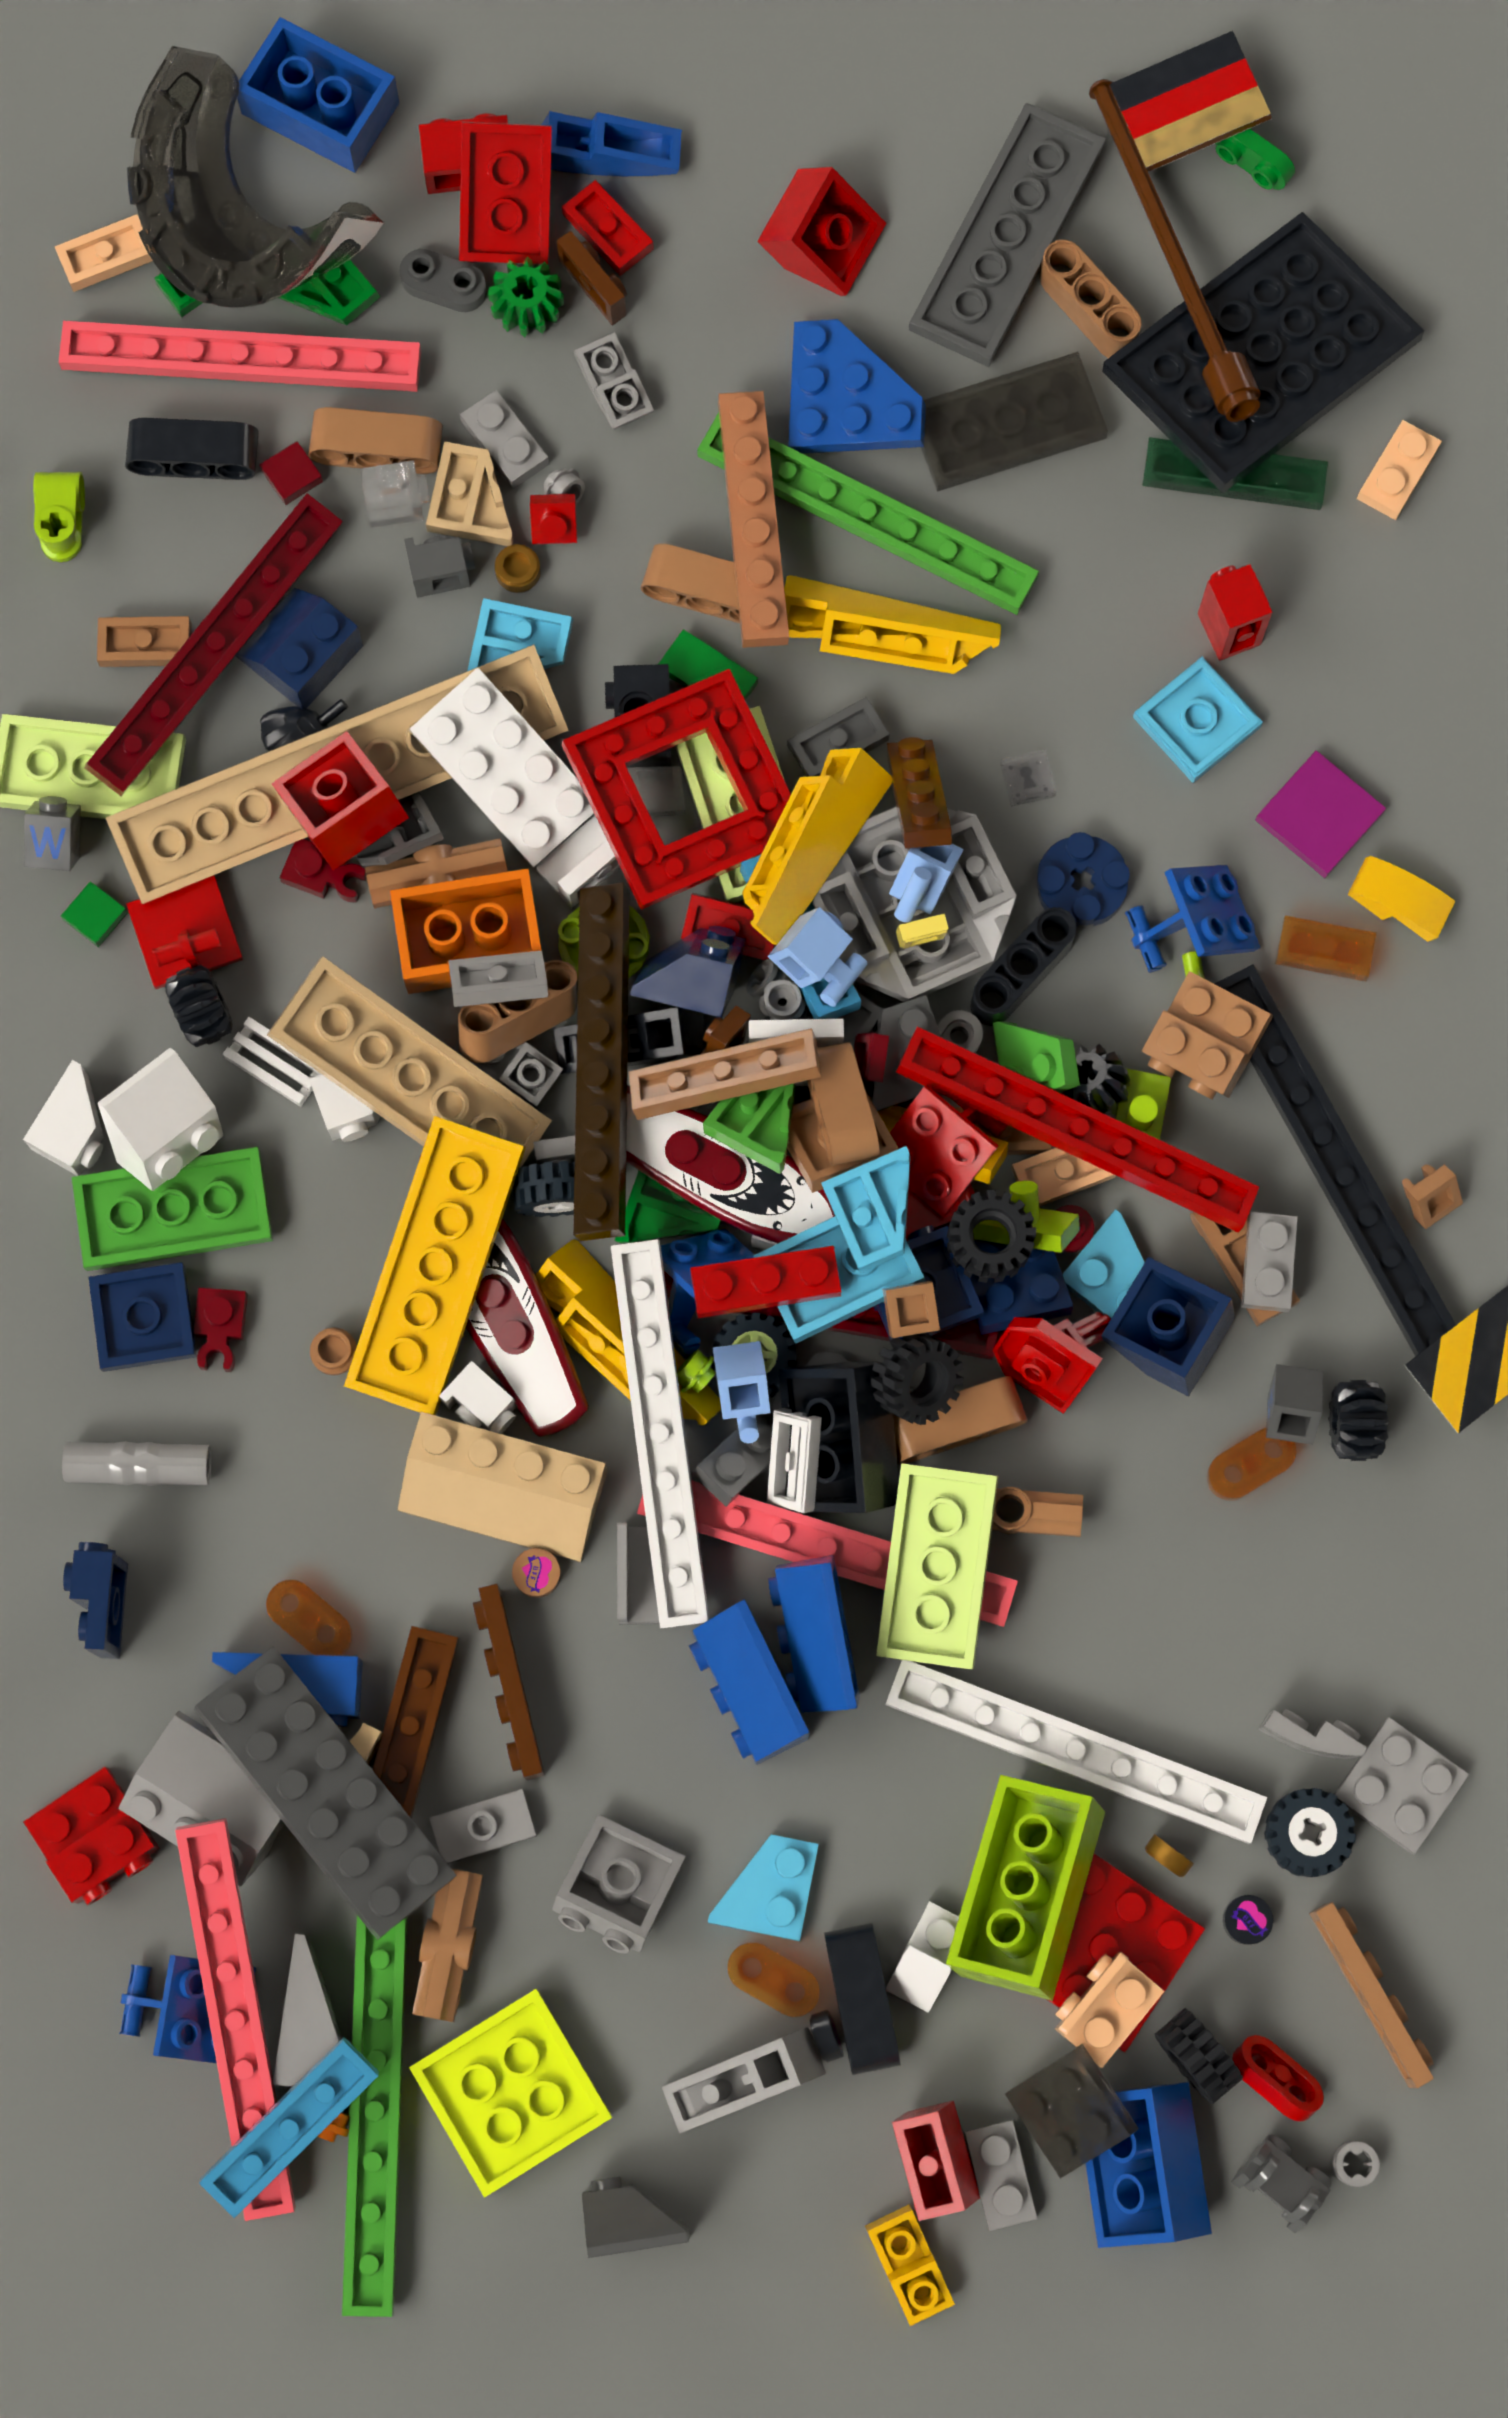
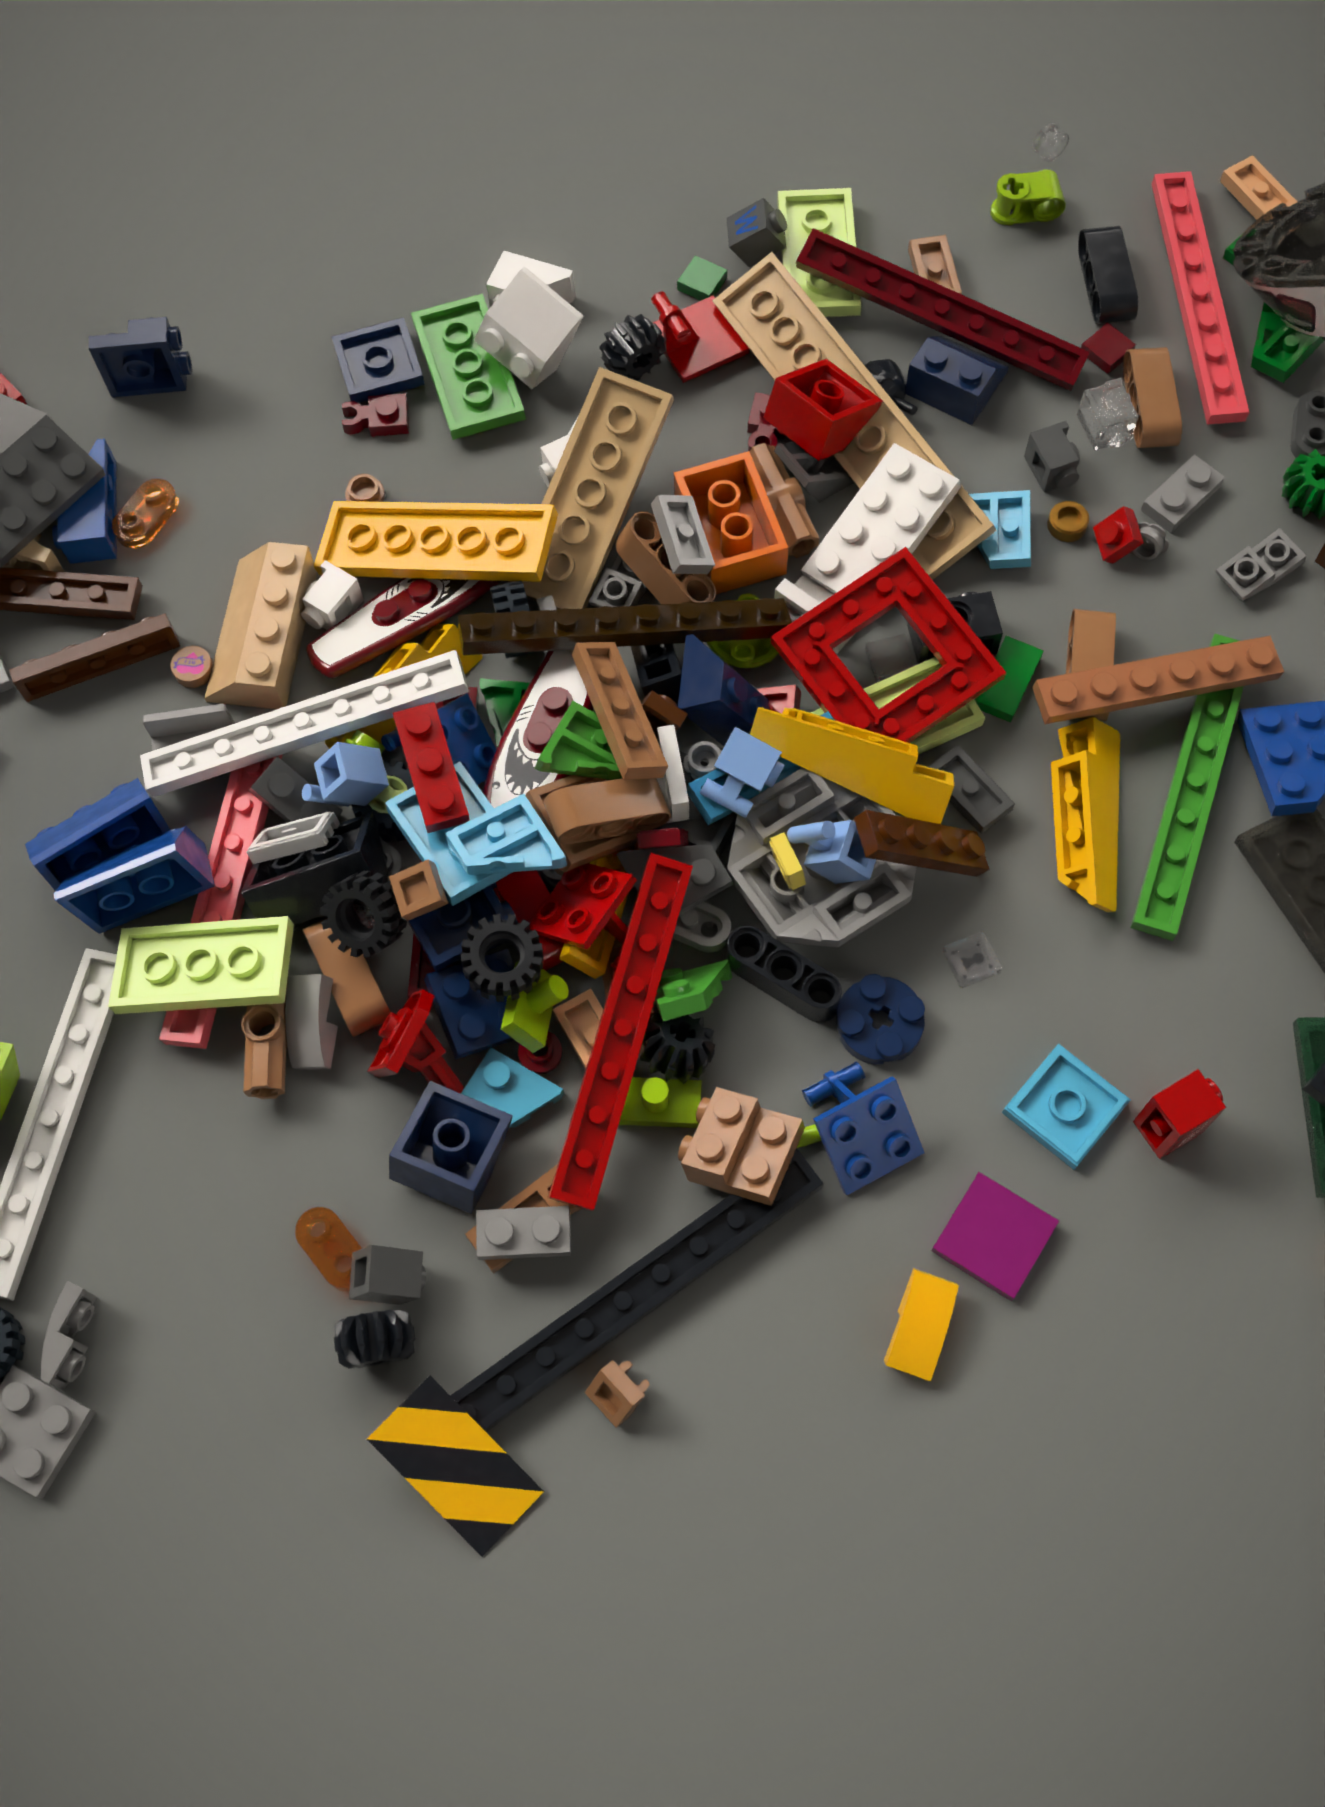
camera: 85 degrees right, 10 degrees down
(136, 1463) = (259, 376): light grey axle -> none
(468, 497) = (1121, 472): tan wing -> none
(1018, 1462) = (307, 1032): none -> light grey slope
(1325, 948) = (855, 1255): clear orange plate -> none

